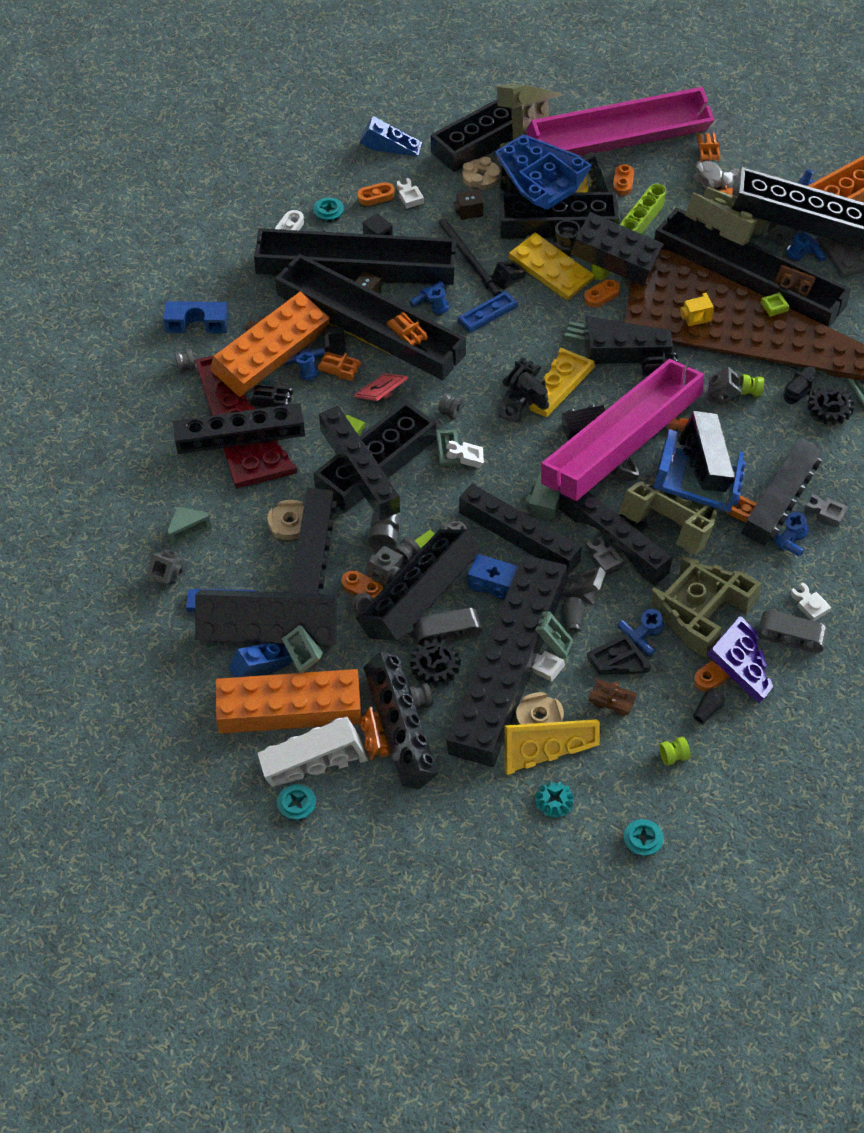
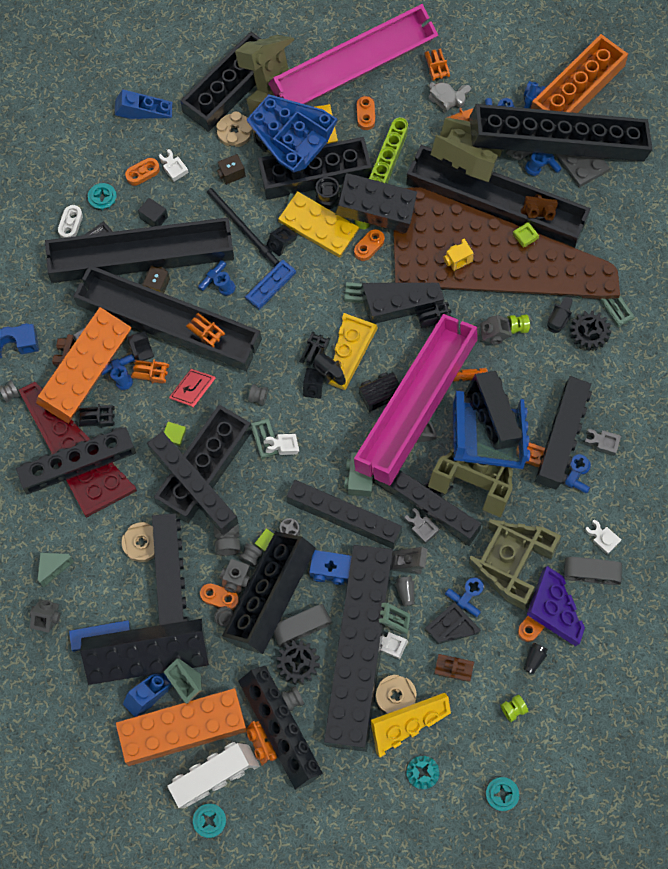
camera: 10 degrees left, 15 degrees up
(595, 174) = (342, 121): black hinge -> none

